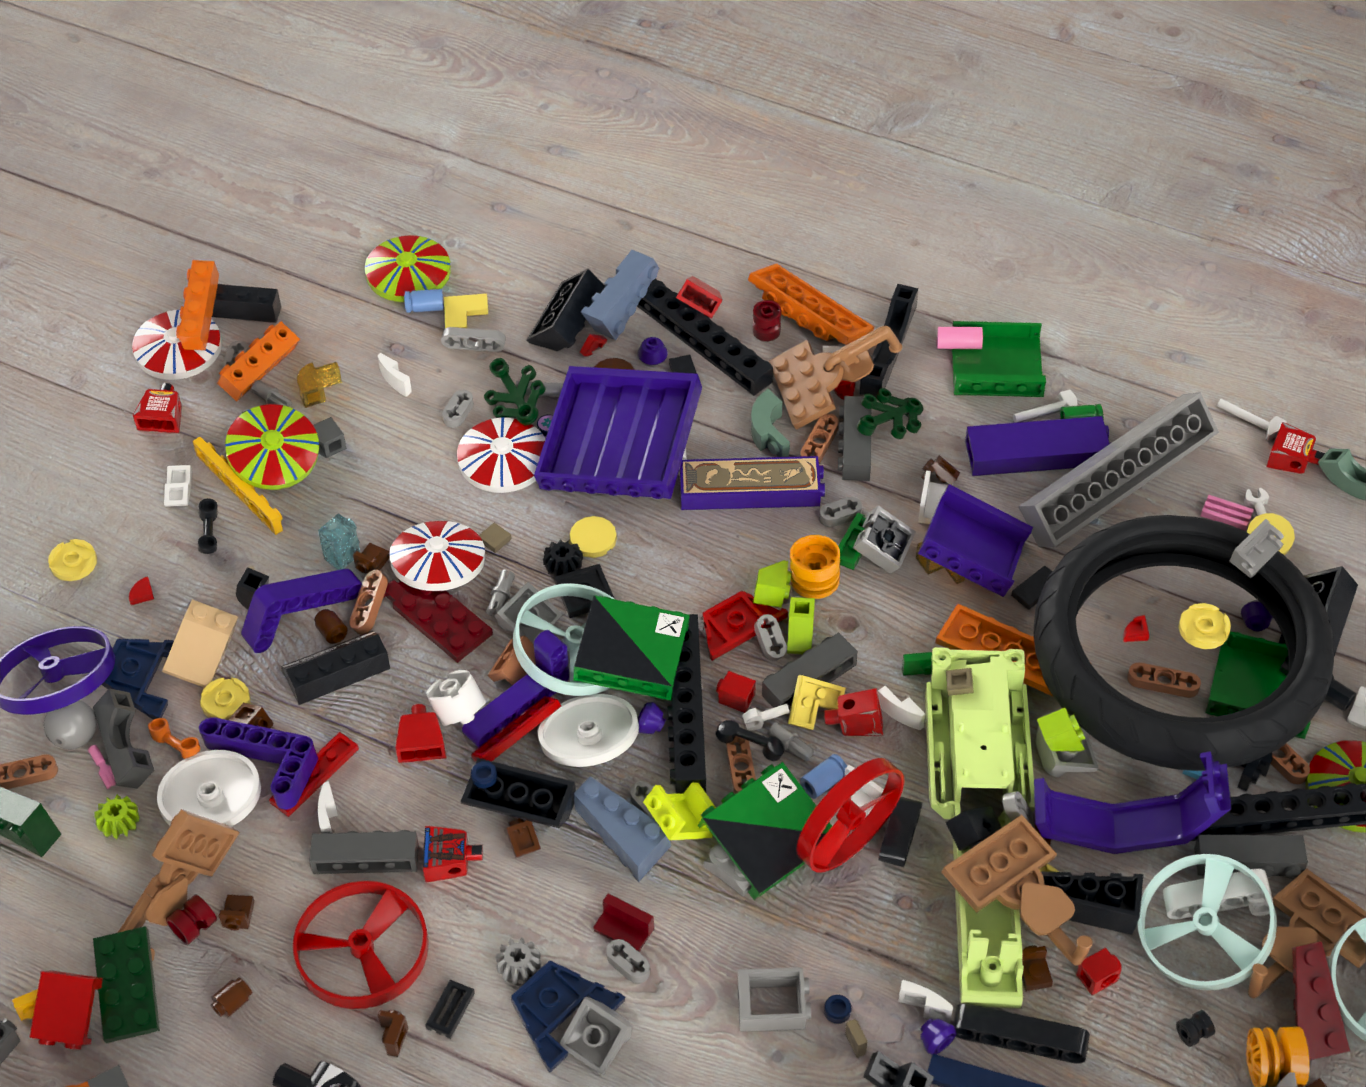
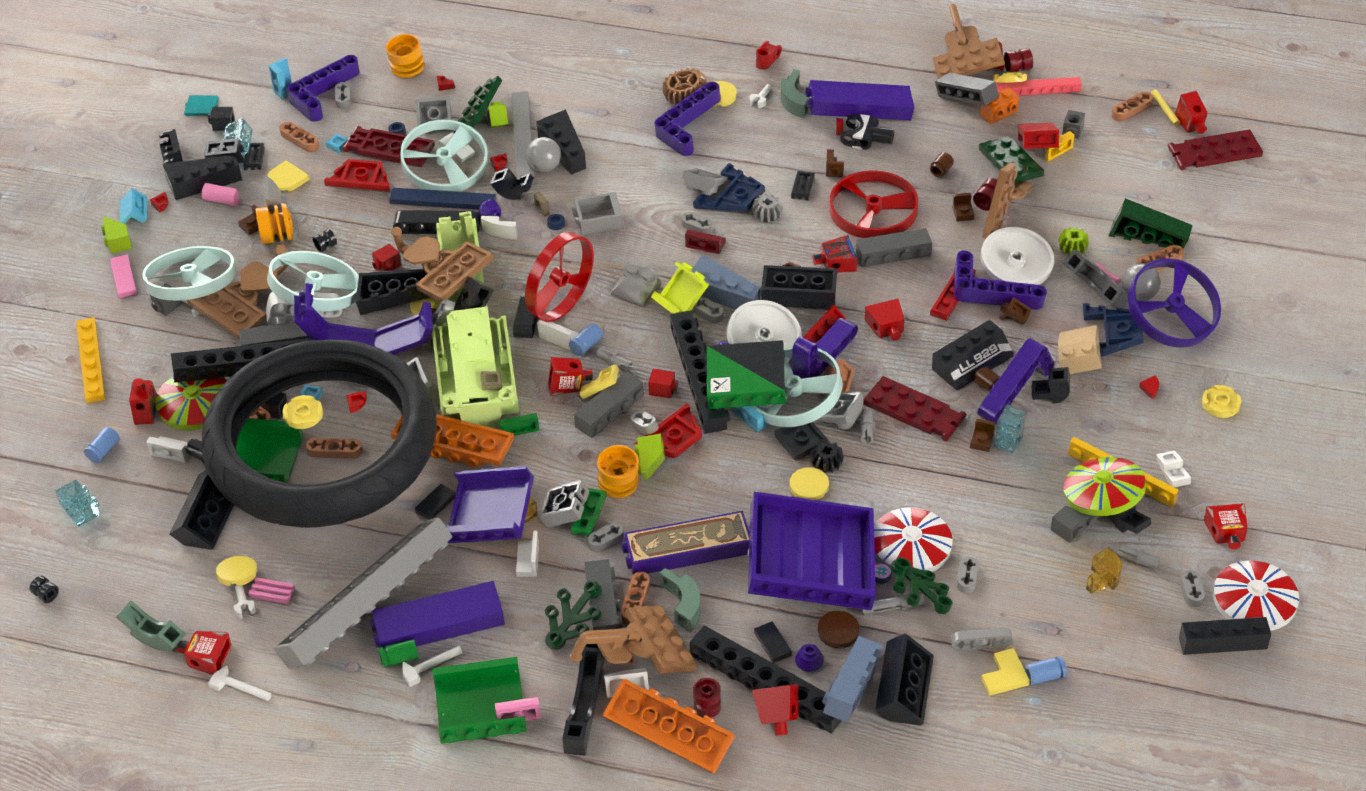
camera: 170 degrees right, 5 degrees down
(161, 733) = (1076, 298): orange bar -> none
(198, 305) = (1245, 595): orange brick -> none
(208, 513) = (1119, 426): black bar -> none
(226, 704) = (1043, 327): light yellow tile -> none
(258, 360) = (1166, 577): orange brick -> none
(326, 807) = (932, 267): white slope -> none
(364, 616) = (967, 410): nougat beam -> none
(392, 375) = (1045, 593): white slope -> none
(407, 265) = (1081, 712): dish -> none
(437, 555) = (929, 442): dish -> none
(455, 698) = (868, 332): white brick -> none
(483, 774) = (826, 280): dark blue tile -> none
(495, 537) = (890, 470): dark tan tile -> none
(729, 729) = (660, 347): black bar -> none
(733, 758) = (648, 335): nougat beam -> none
(755, 719) = (643, 368): white bar -> none
(763, 827) = (620, 289): panel -> none
(800, 625) = (622, 433): lime slope -> none
(904, 712) = (533, 389): white slope -> none
(944, 471) = (523, 578): reddish brown bracket -> none
(1062, 731) = (418, 361): lime slope -> none
(1257, 549) = (258, 467): light grey hinge -> none
(1317, 1003) = (246, 253): dark red wing -> none

